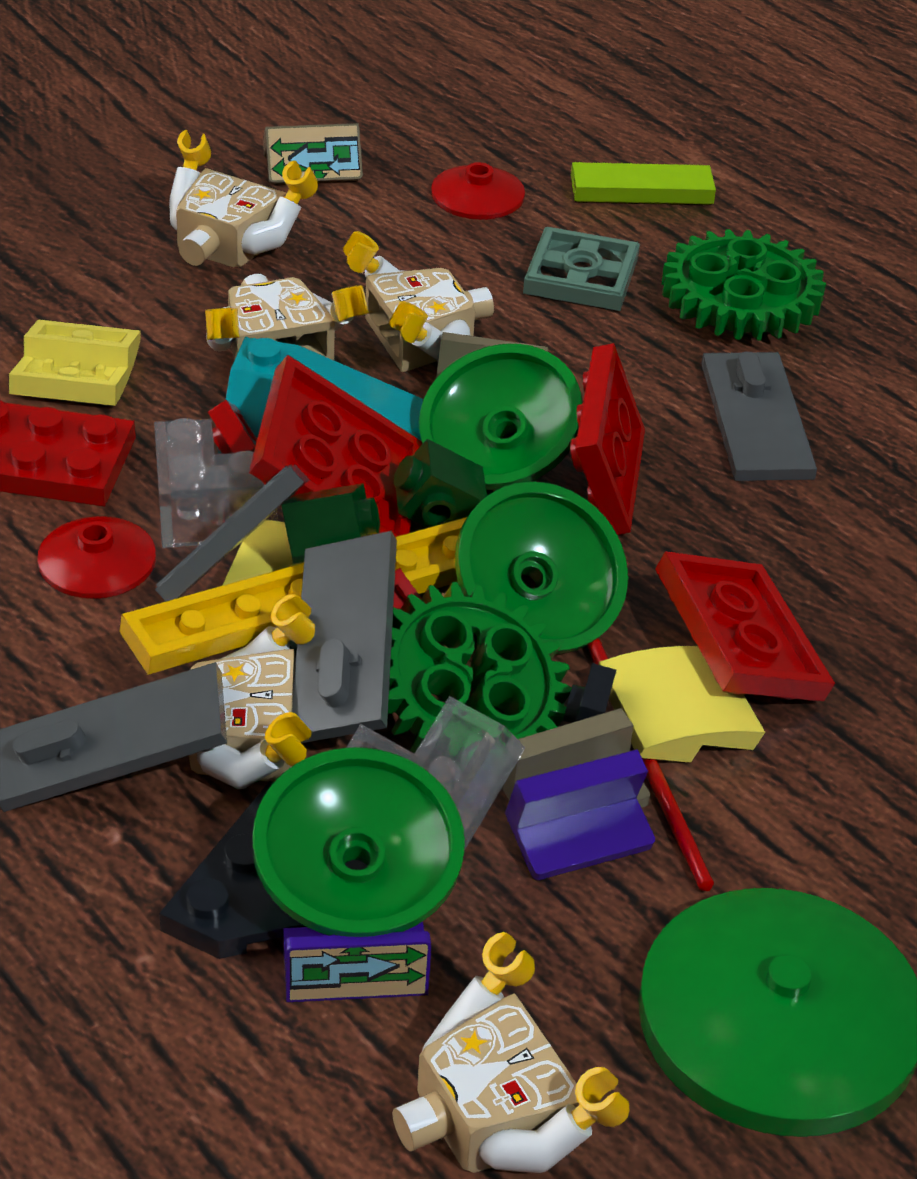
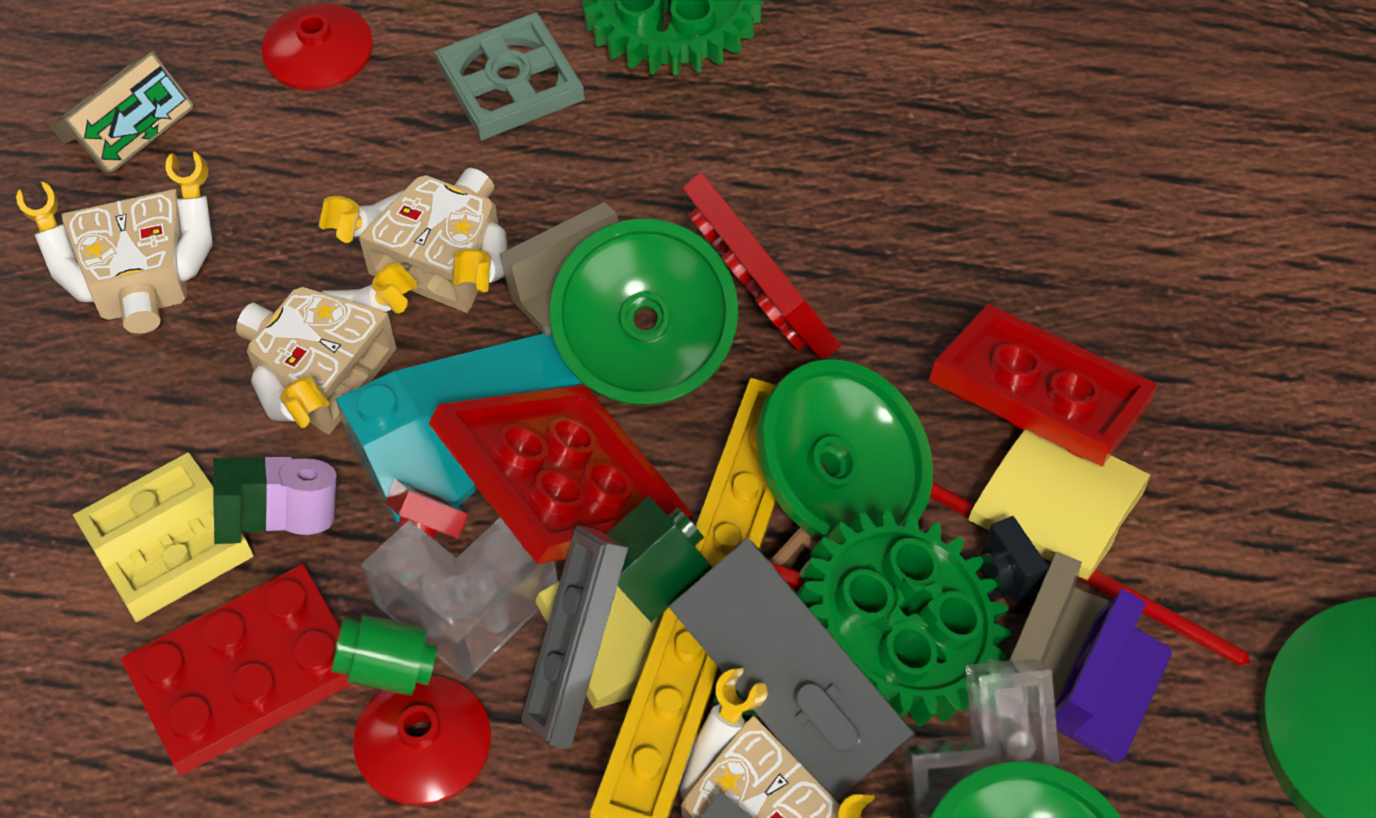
camera: 35 degrees left, 15 degrees up
(116, 481) = (383, 654): none -> green brick
(151, 370) = (271, 496): none -> leg
(438, 485) = (670, 433): dark green brick -> none
(758, 417) = (814, 137): dark grey piece -> none

